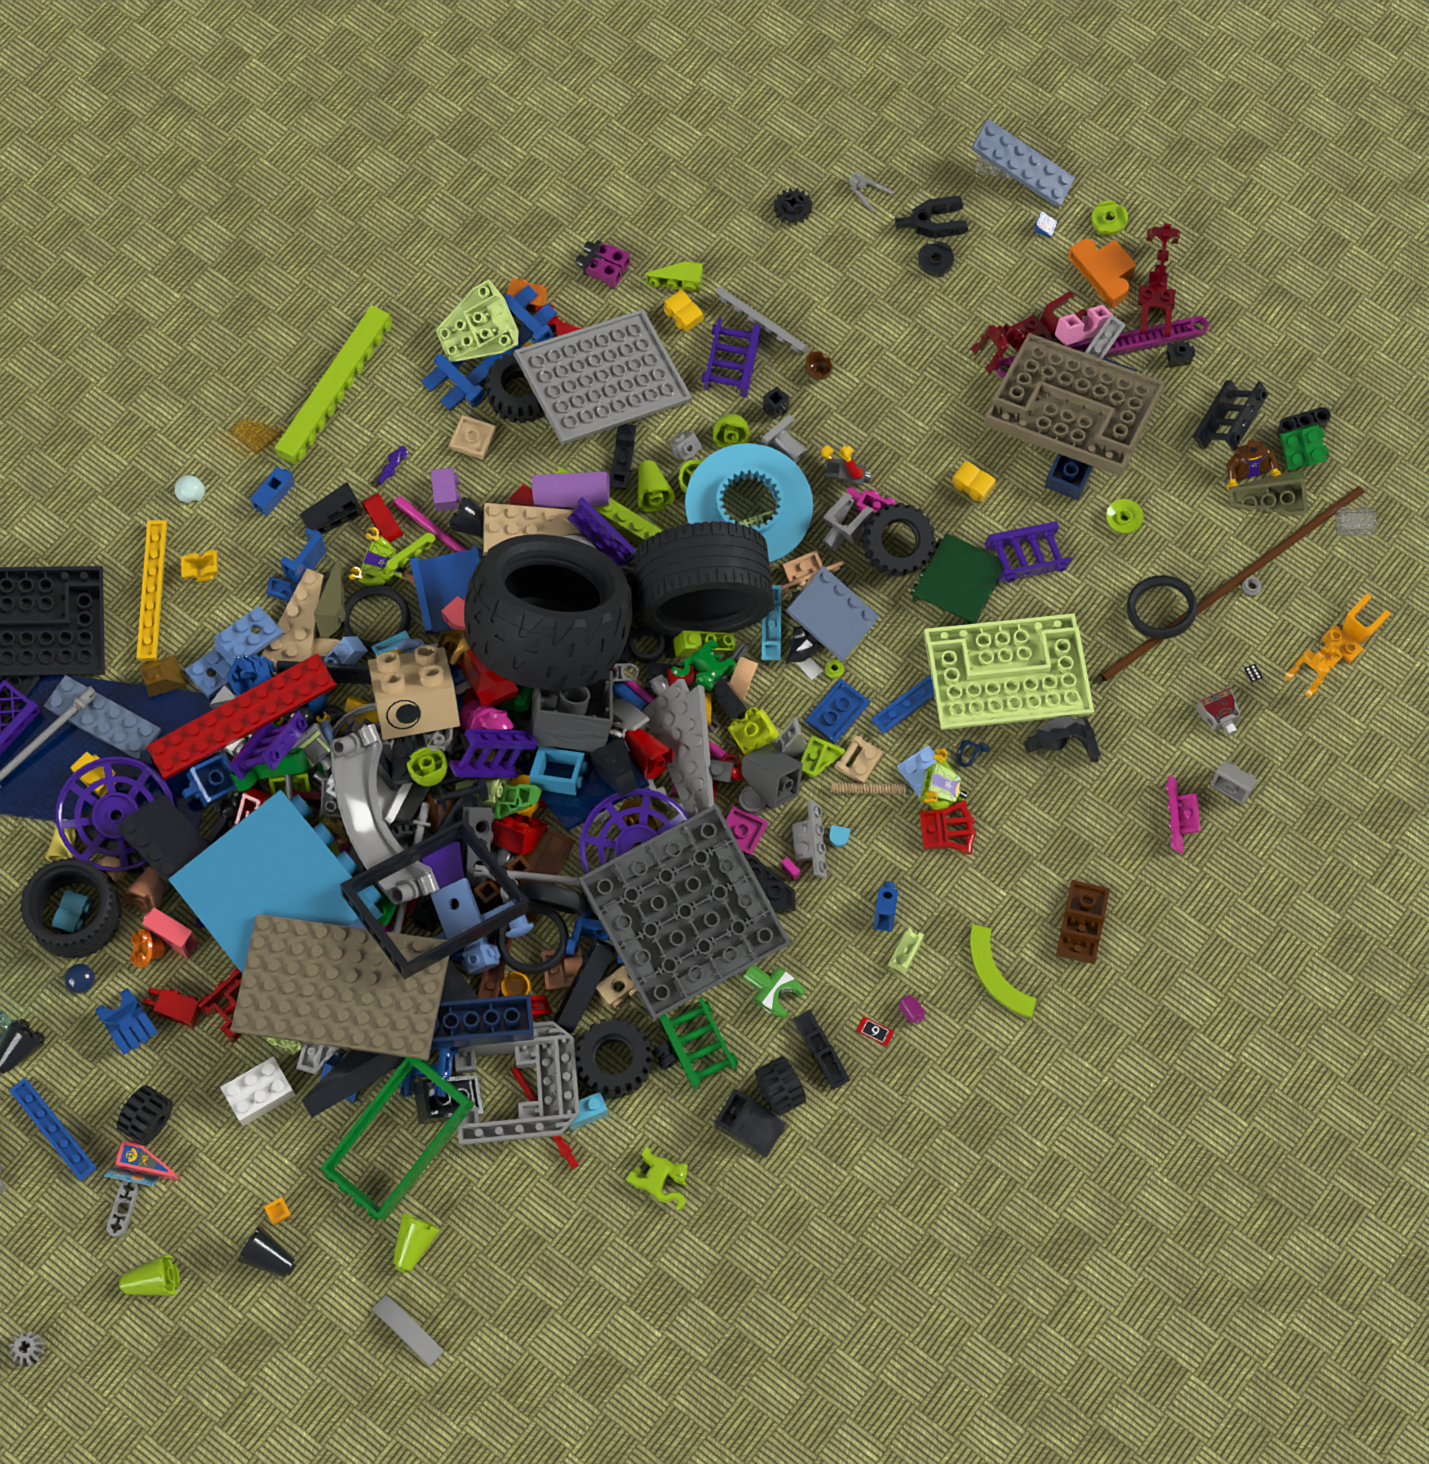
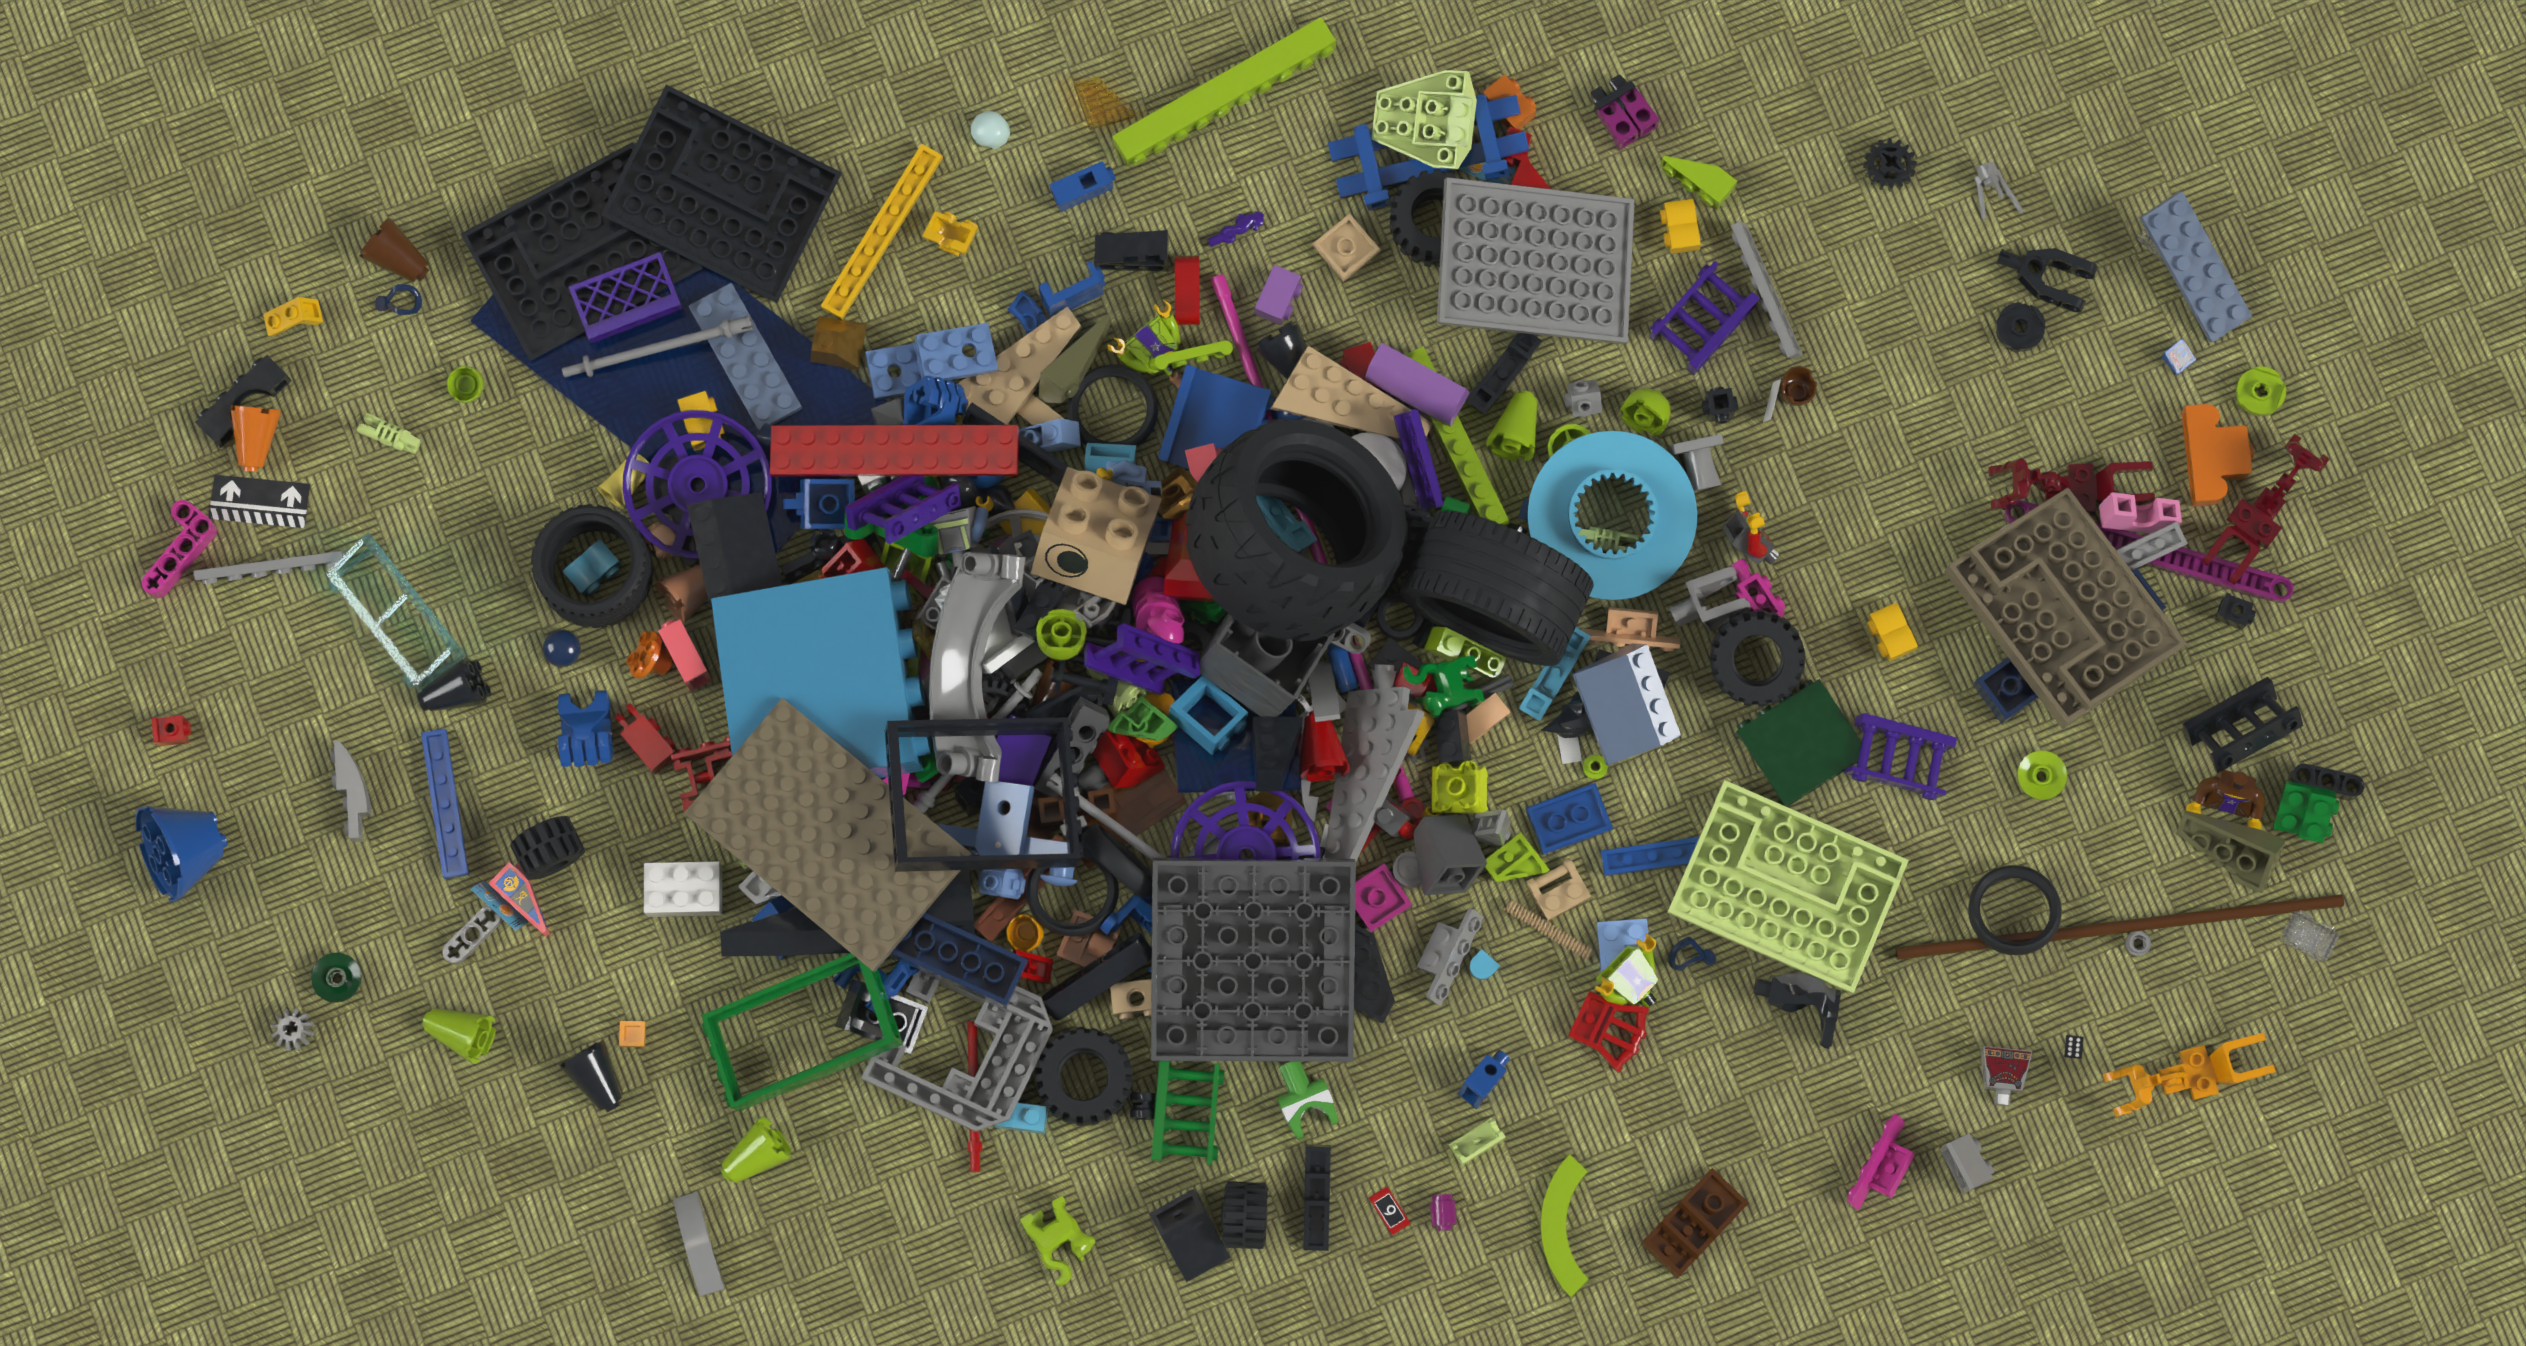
camera: 30 degrees right, 10 degrees up
(32, 1286) = (327, 968): none -> dark green dish
(790, 869) = (1404, 973): dark pink tile -> none
(807, 384) = (1772, 399): none -> white sticker

